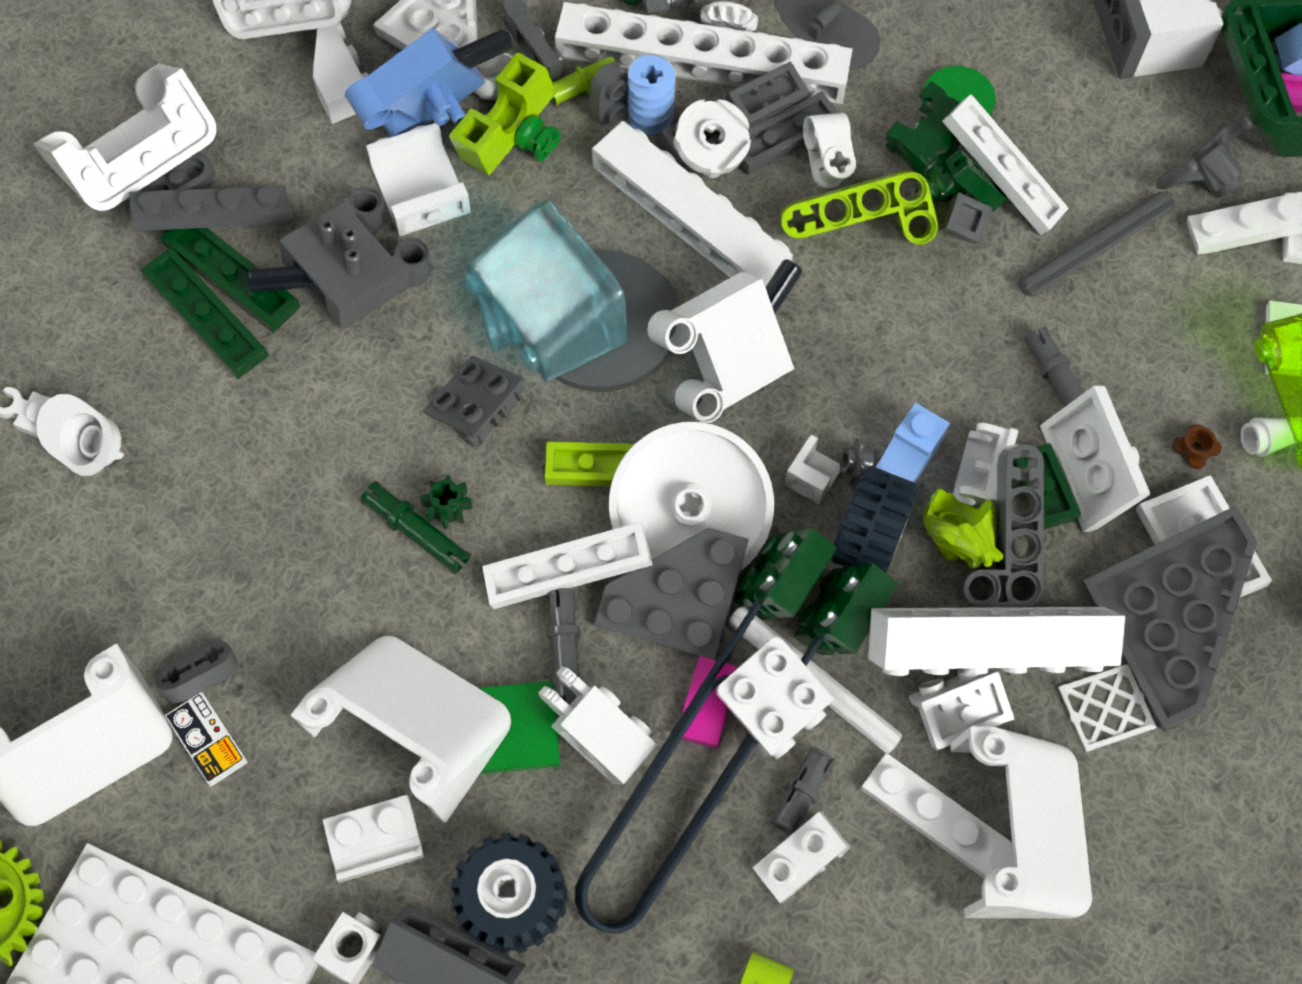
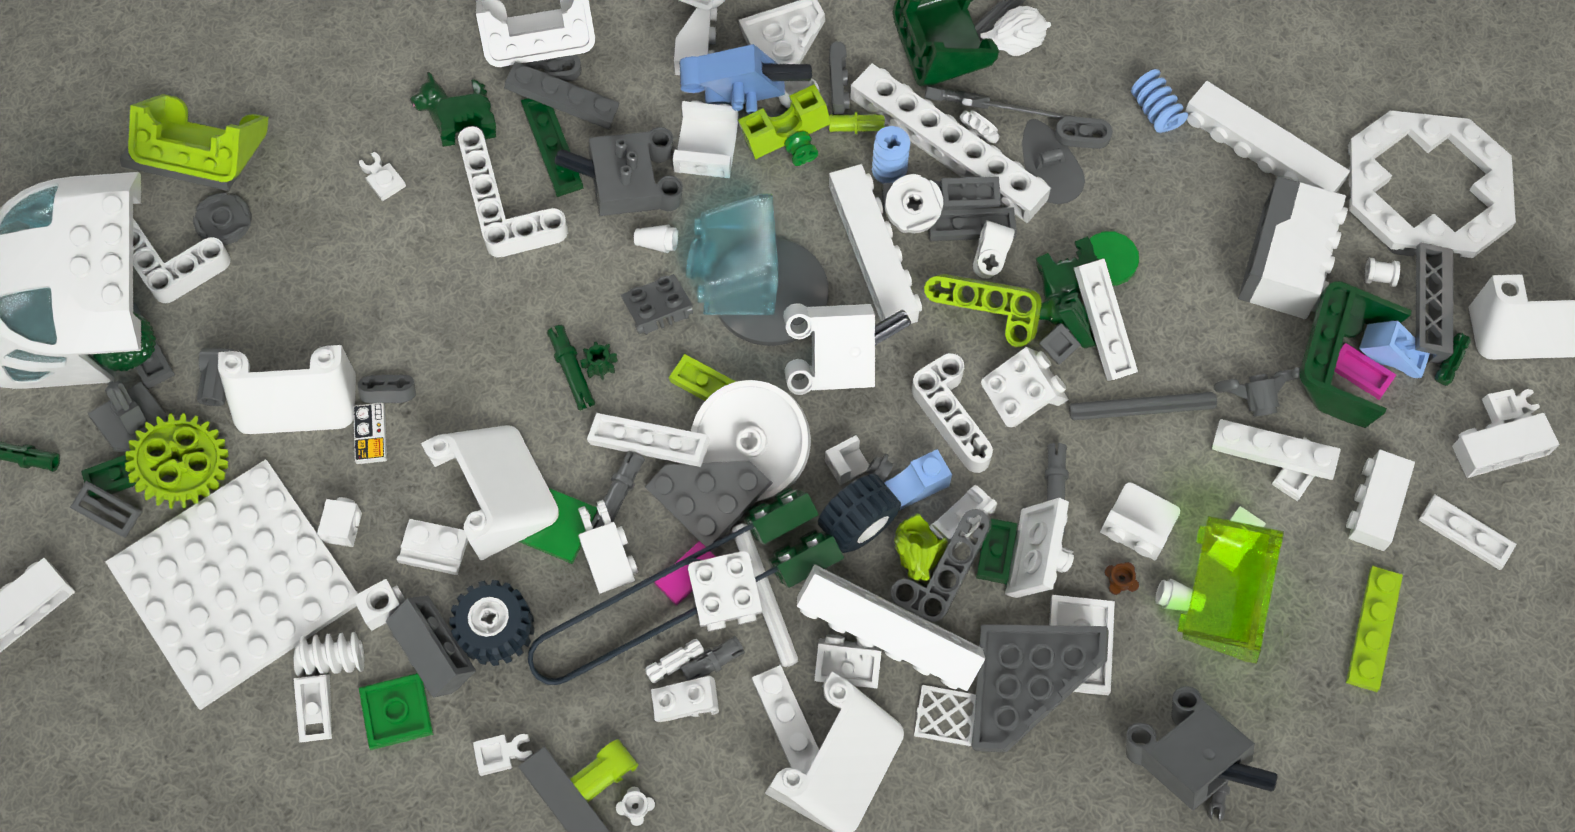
camera: 30 degrees right, 0 degrees up
(78, 434) = (398, 204): white piece -> none
(86, 290) = (456, 112): none -> dark green animal
(199, 377) = (490, 203): none -> white beam
(204, 313) = (520, 163): dark green plate -> none
(234, 871) = (339, 522): none -> white brick
(428, 322) = (658, 238): none -> white cone
(609, 94) = (862, 141): dark grey plate -> none
(757, 817) = (674, 660): none -> white axle
(905, 355) = (957, 416): none -> white beam
(957, 287) = (1023, 386): none -> white bracket
(1179, 372) = (1141, 521): none -> white bracket

